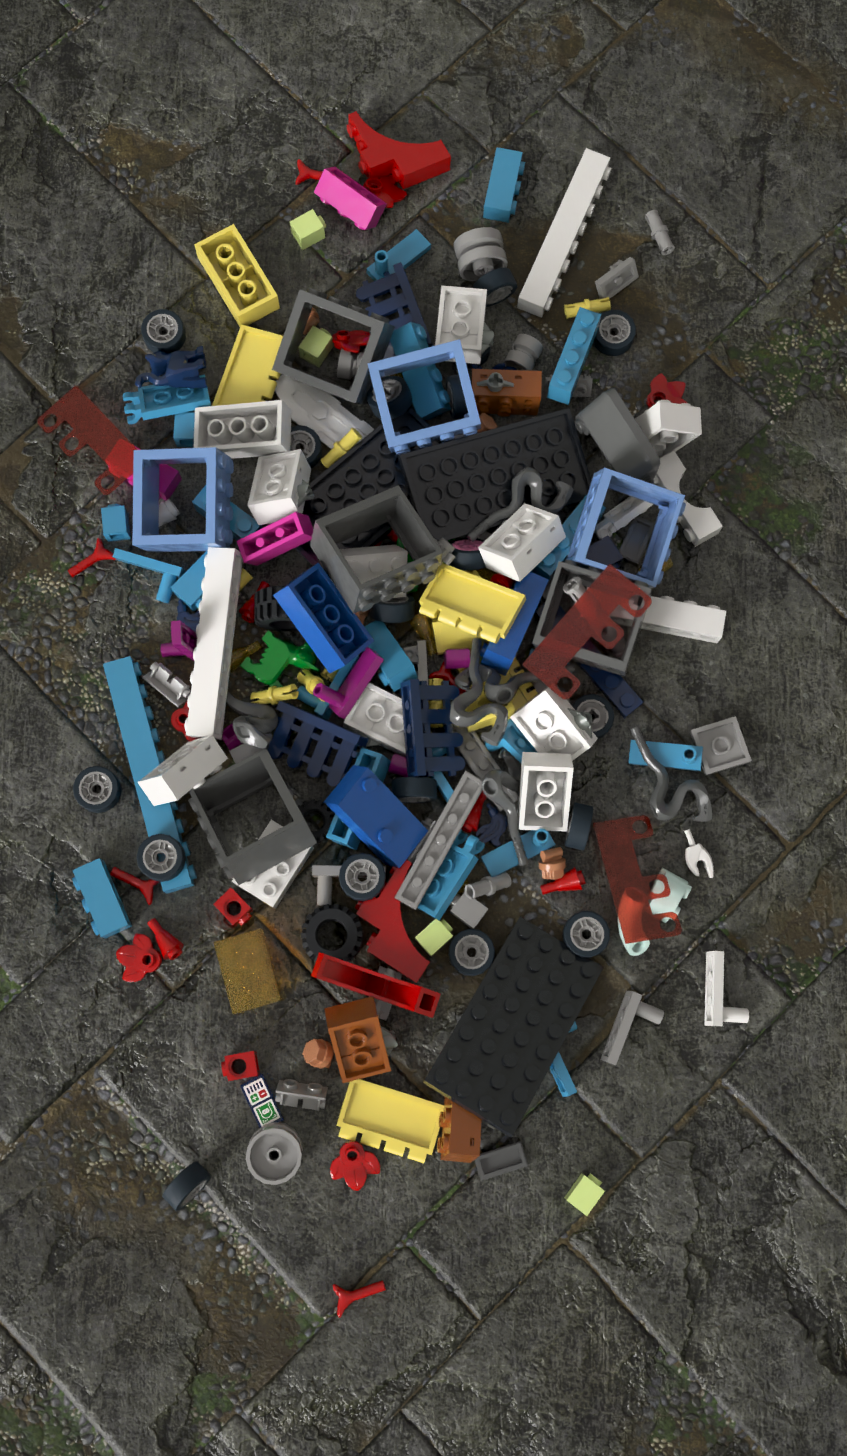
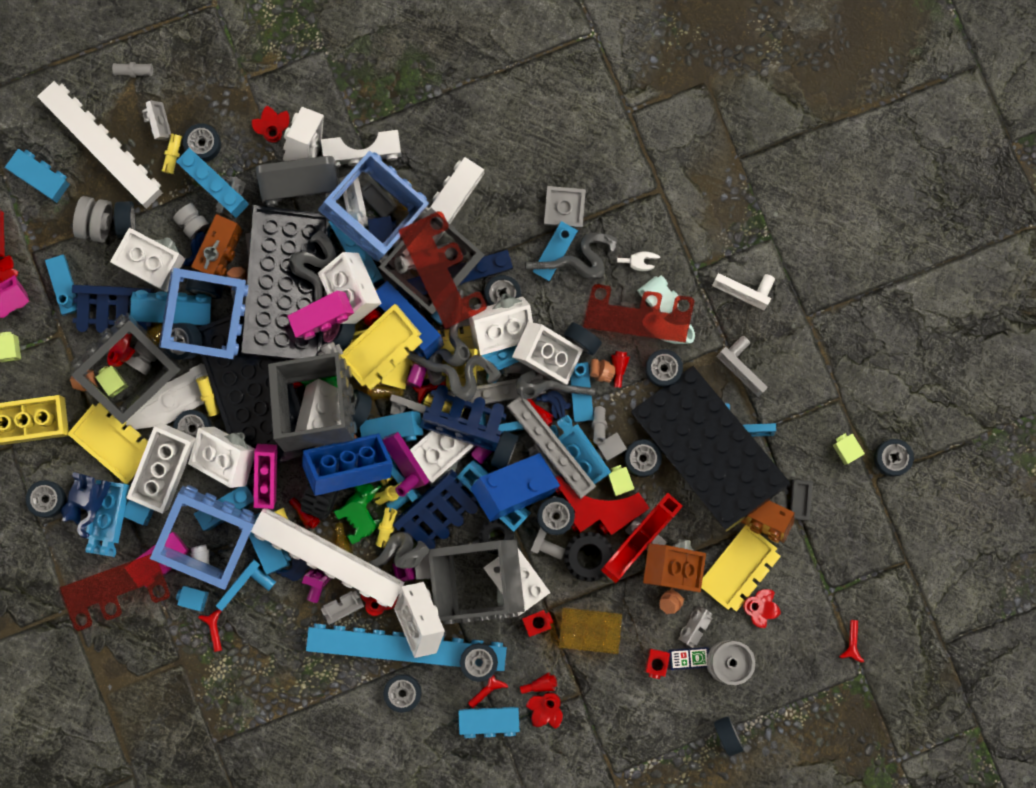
camera: 65 degrees left, 5 degrees up
(478, 521) = (320, 315): none -> dark pink brick
(611, 1258) = (884, 459): none -> wheel

